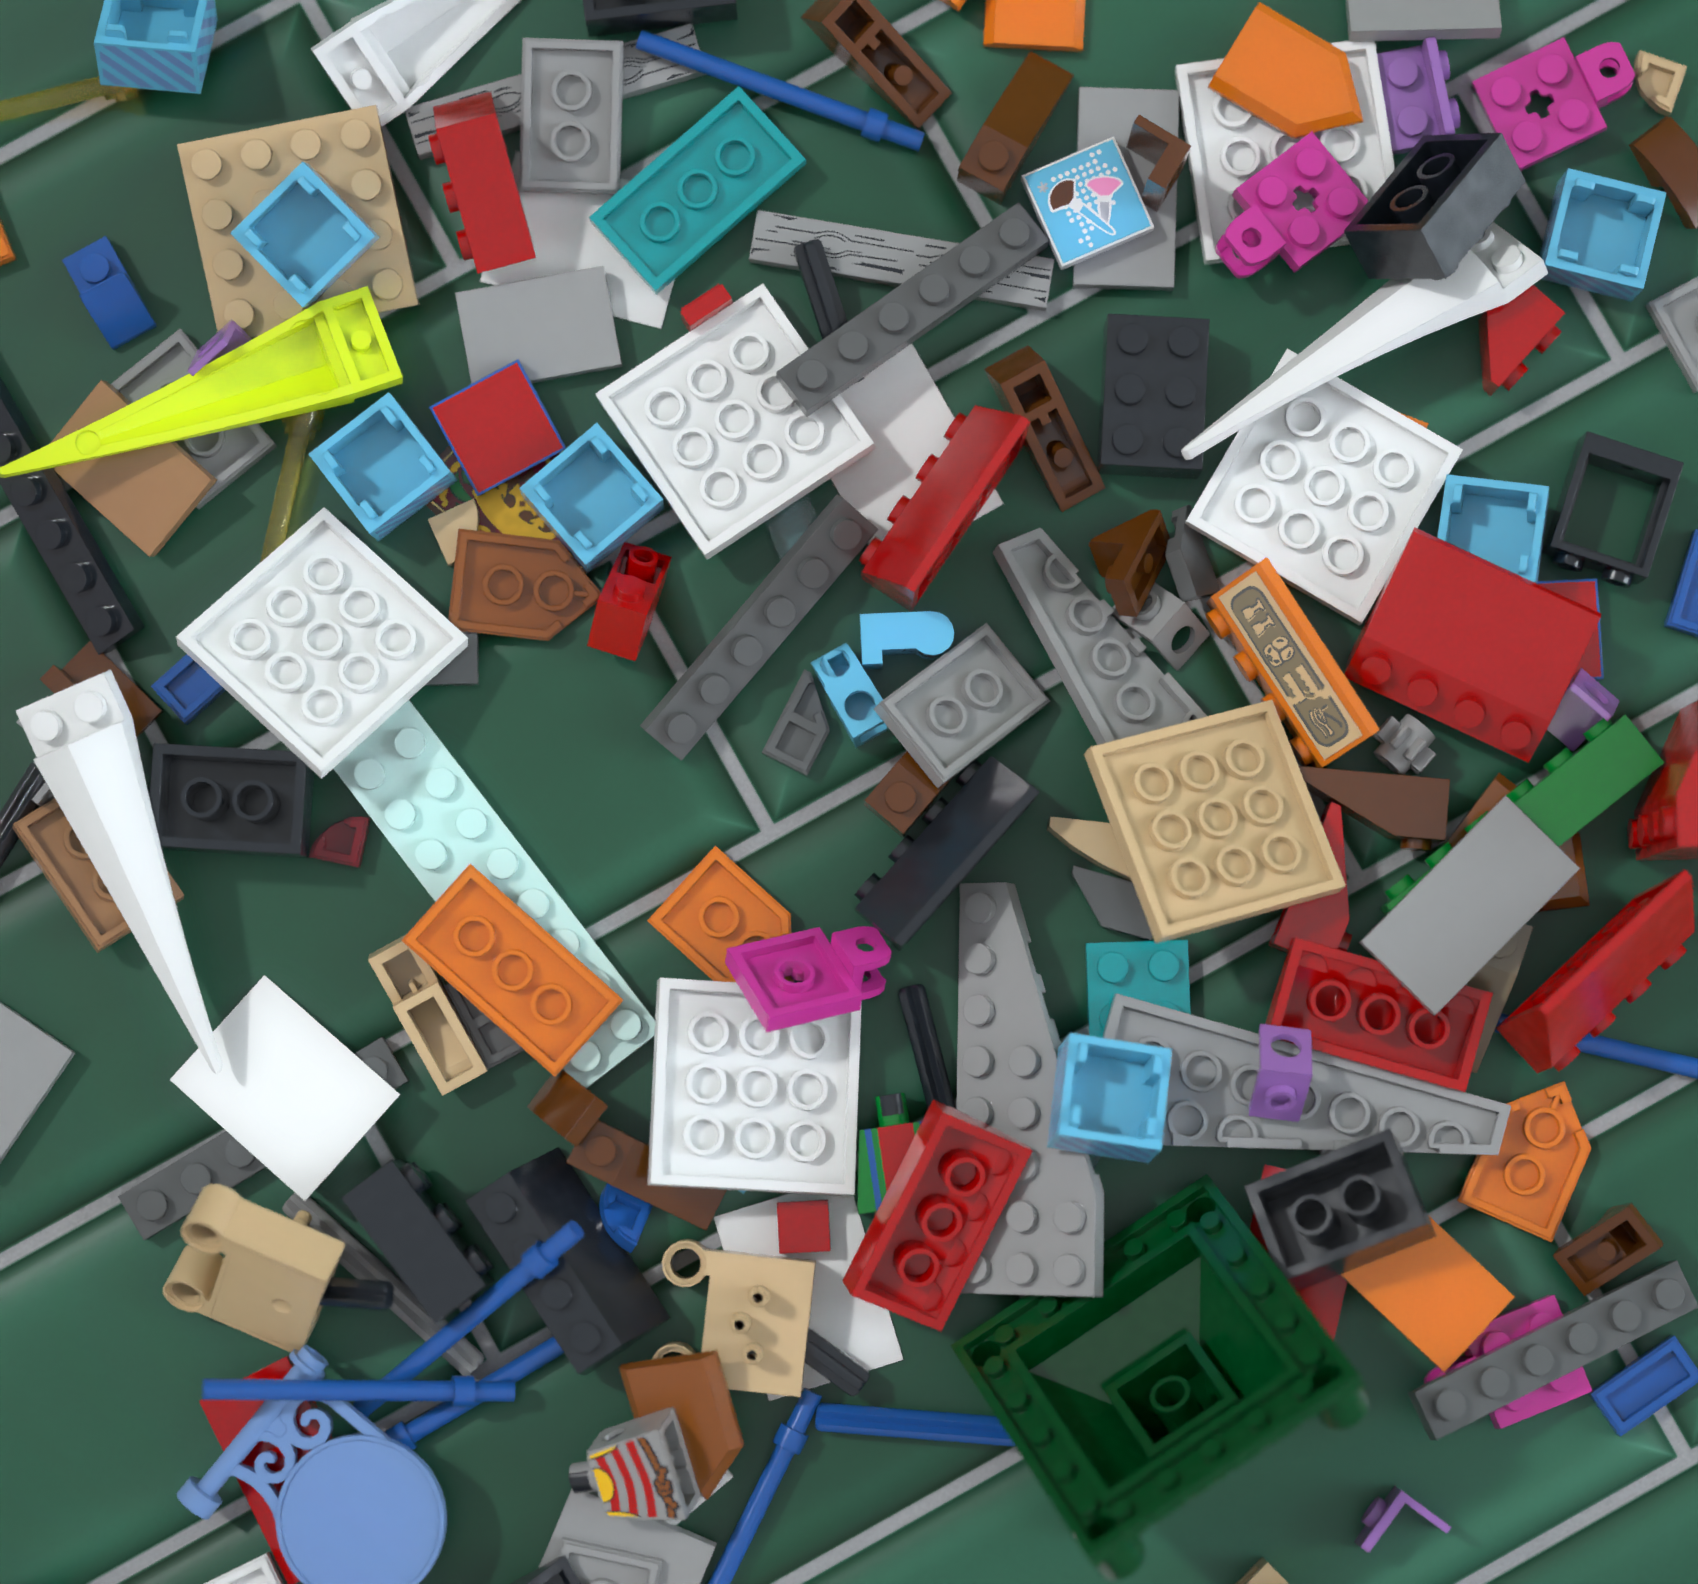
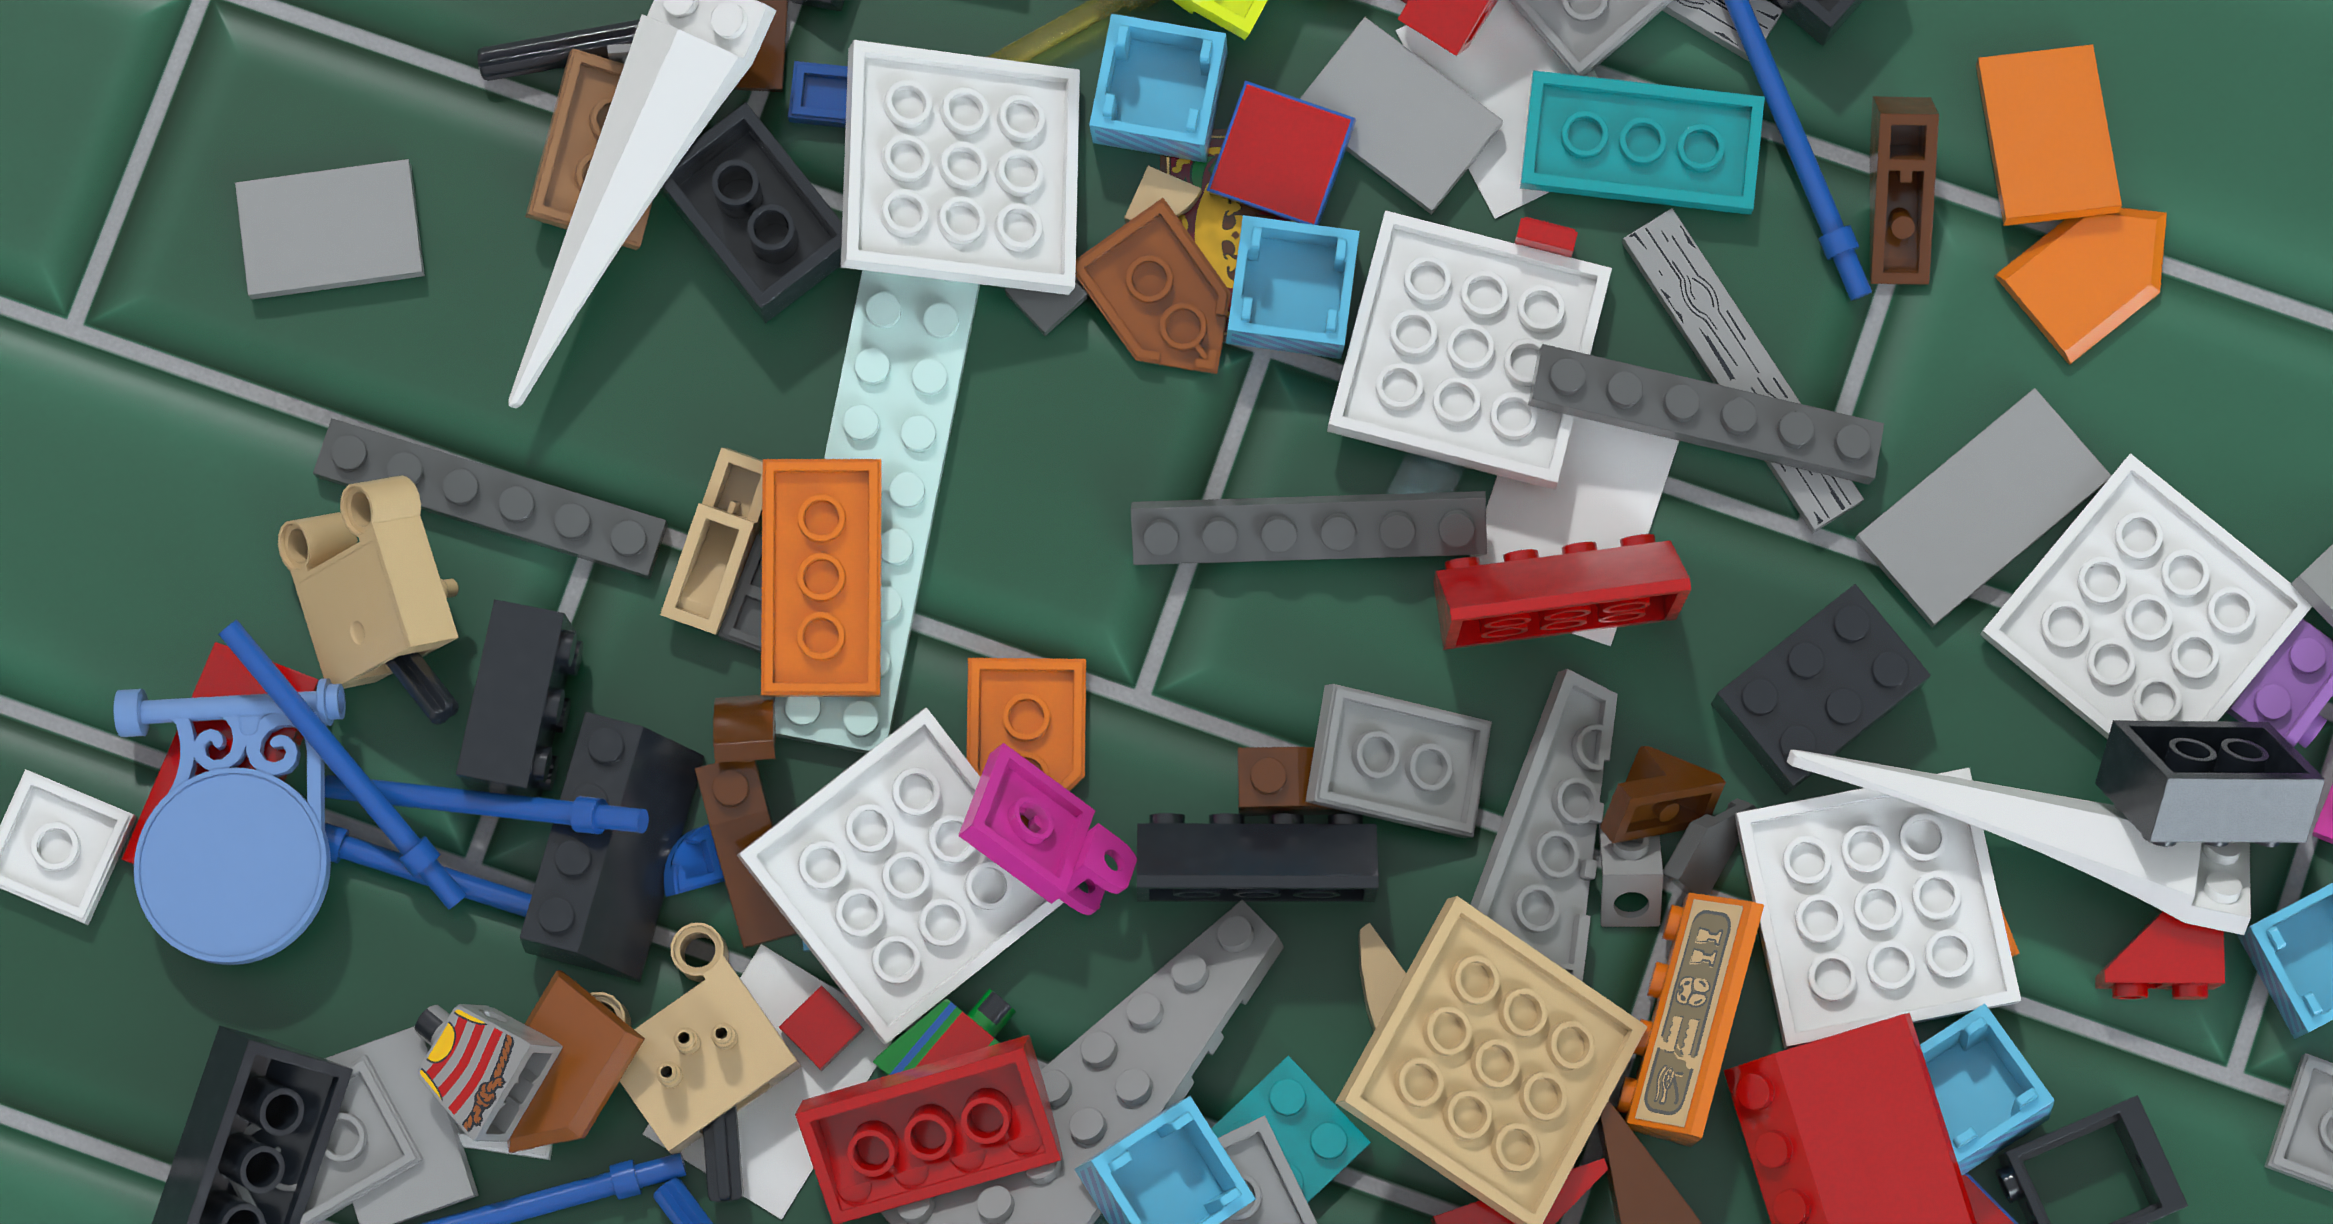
camera: 50 degrees right, 5 degrees down
(286, 1088) = (549, 477): white sticker -> none
(343, 842) = (805, 340): dark red tile -> none
(365, 1265) = (456, 675): light grey axle -> none
(628, 601) = (1231, 397): red slope -> none
(800, 729) = (1253, 643): dark grey tile -> none
(820, 287) = (1653, 320): black axle -> none
(850, 693) = (1321, 657): medium azure leg -> none
(921, 632) = (1415, 656): medium azure leg -> none
(925, 1045) = (1074, 994): black axle -> none
(1013, 127) = (1946, 362): reddish brown slope -> none
(1052, 439) = (1708, 621): reddish brown slope -> none
(1087, 203) = (1938, 483): medium azure tile -> none
(1113, 902) = (1342, 1041): dark grey tile -> none
(1164, 151) = (2032, 519): reddish brown panel -> none
(1273, 224) = (2066, 656): dark pink plate -> none
(1287, 77) = (2209, 557): orange tile -> none
(1404, 745) = (1714, 1181): light grey gear -> none

